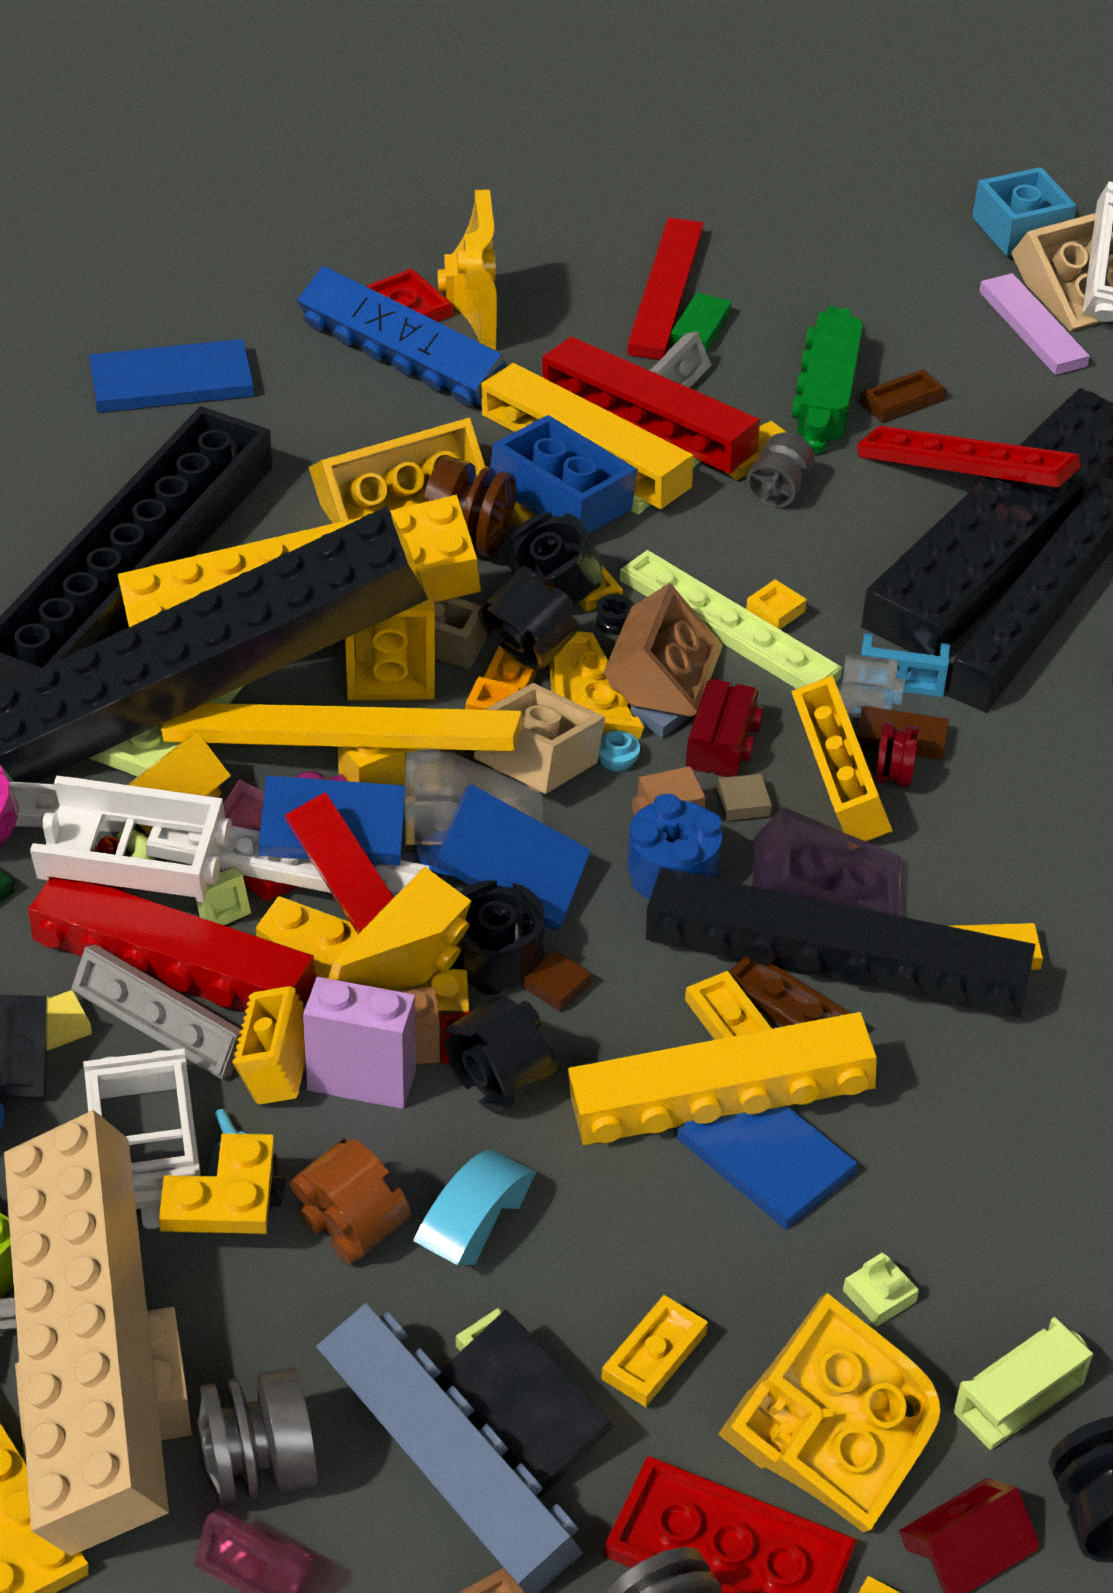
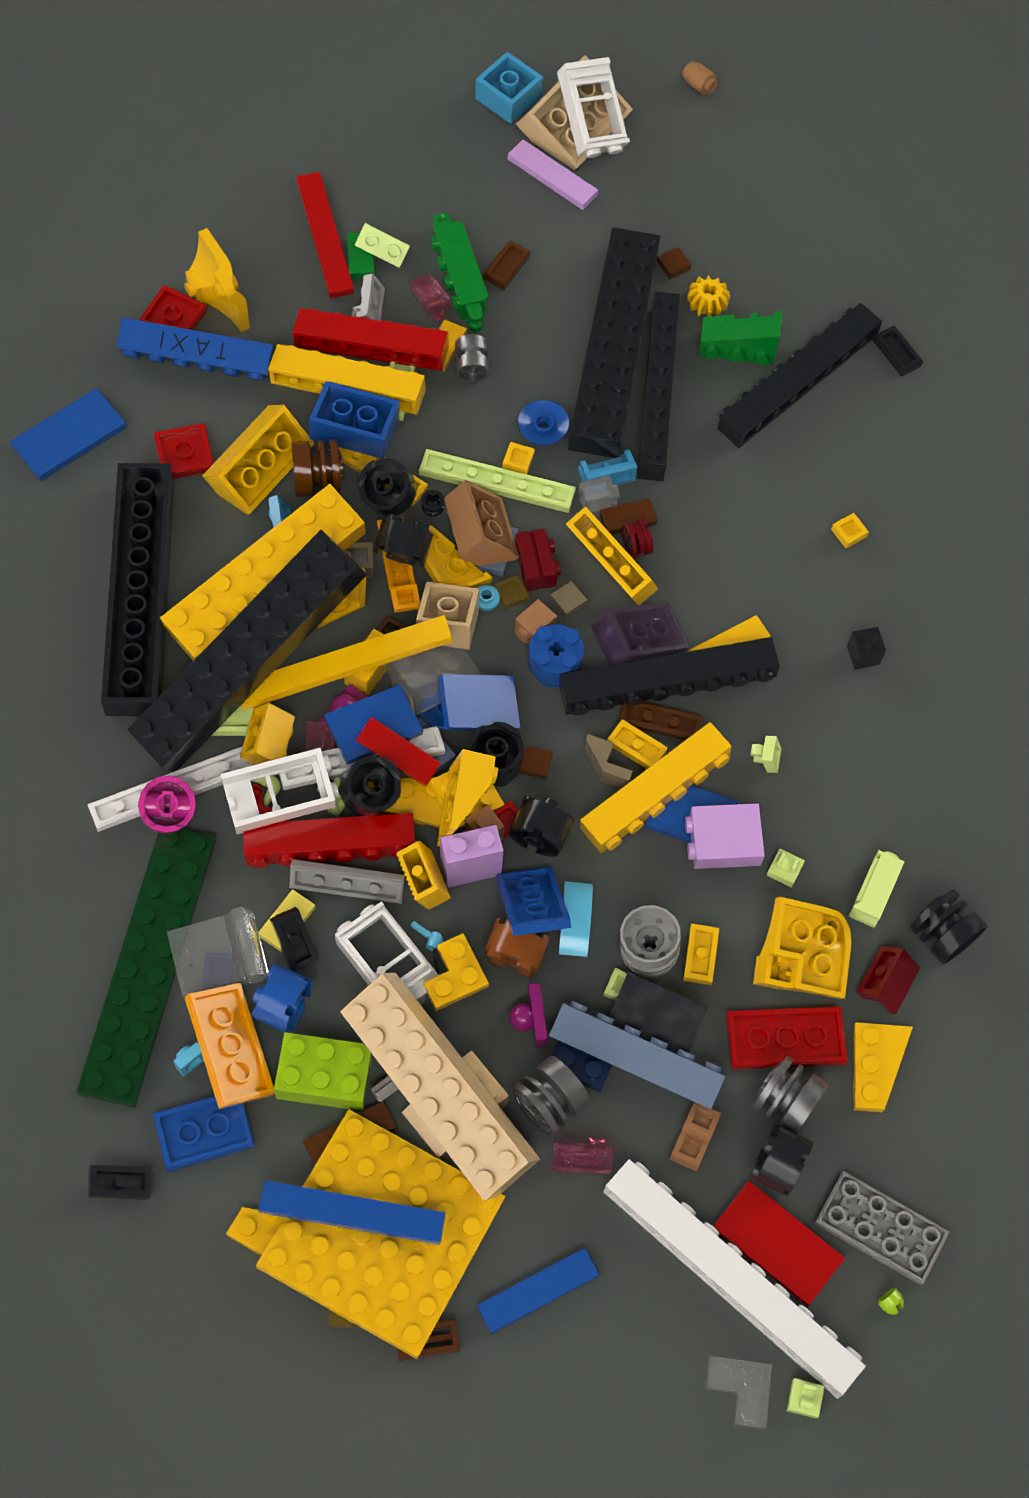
camera: 30 degrees left, 20 degrees up
(291, 881) = (384, 793): none -> black brick
(308, 437) = (184, 449): none -> red tile
(313, 1314) = (531, 1016): none -> magenta tile
(349, 1430) = (587, 1068): none -> dark blue plate
(411, 1136) = (532, 901): none -> blue tile
(573, 1283) = (651, 926): none -> light grey wheel
(661, 754) = (512, 592): none -> clear yellow tile
(665, 1011) = (599, 754): none -> dark tan slope
(735, 314) = (382, 245): none -> yellowish green hinge
(767, 387) = (430, 296): none -> clear pink hinge
(796, 1190) = (725, 836): none -> lavender brick
(838, 575) = (543, 414): none -> blue dish
(944, 1112) = (768, 754): none -> yellowish green tile
(969, 456) = (576, 308): red tile -> none

